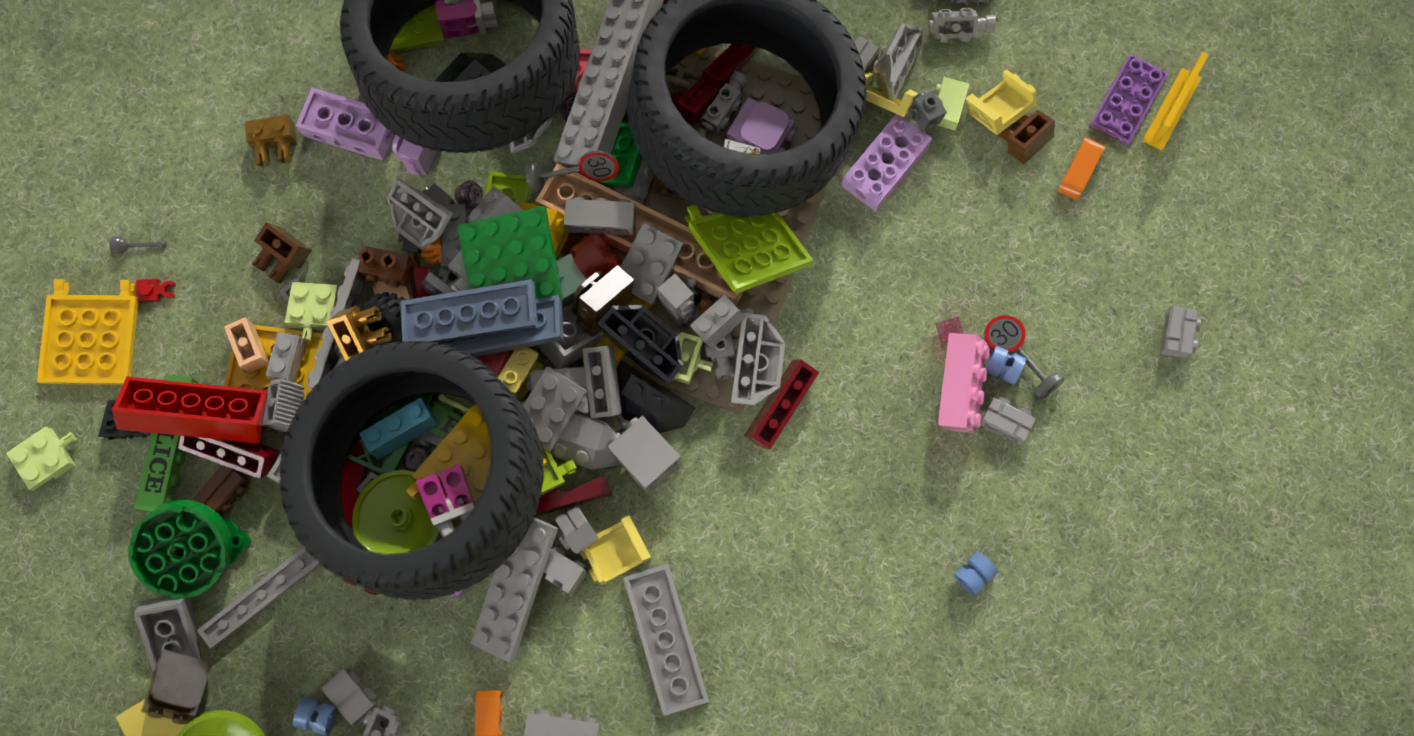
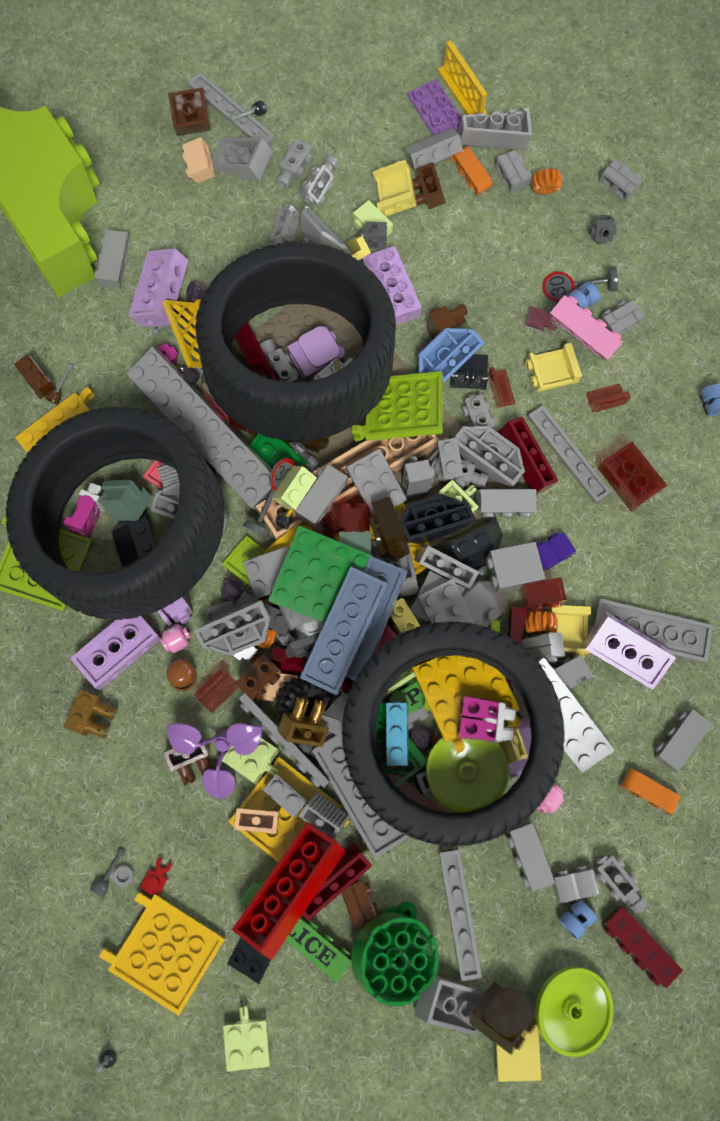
camera: 70 degrees left, 0 degrees up
(141, 259) = (123, 875): none -> light grey tile
(314, 277) = (240, 735): none -> medium lavender plant
(354, 634) = (530, 857): none -> light grey brick
(356, 196) = (180, 674): none -> dark orange helmet
(357, 236) = (216, 690): none -> clear red panel
(387, 170) = (175, 638): none -> bright pink head
(424, 621) = (552, 801): none -> bright pink head
(494, 42) = (124, 499): none -> sand green plate
(556, 196) = (284, 519): none -> black hinge
(591, 185) = (294, 487): none -> yellowish green piece
(603, 515) = (541, 623): none -> orange gear
(623, 620) = (630, 662): none -> brick
(631, 497) = (543, 594): none -> clear red brick
(691, 487) = (555, 550): none -> dark purple brick
(715, 409) = (506, 502): none -> light grey brick
(800, 329) = (476, 413): none -> light grey brick
(813, 448) = (569, 454): none -> light grey plate
(825, 526) = (632, 476): none -> clear red brick
(841, 256) = (449, 351): none -> medium blue wedge
(844, 294) = (472, 374): none -> black hinge
(845, 336) = (501, 388): none -> clear red panel
(875, 236) = (442, 317): none -> reddish brown brick
(882, 25) = (285, 225): none -> light grey brick
(901, 378) = (553, 368): none -> light yellow panel
(905, 454) = (607, 398): none -> clear red panel
(1076, 115) = (433, 149): none -> light grey brick
(1102, 342) = (602, 229): none -> dark grey brick
(1109, 212) = (513, 172): none -> light grey brick
(1120, 252) = (546, 181): none -> orange gear
(1145, 166) = (497, 130): none -> light grey wedge

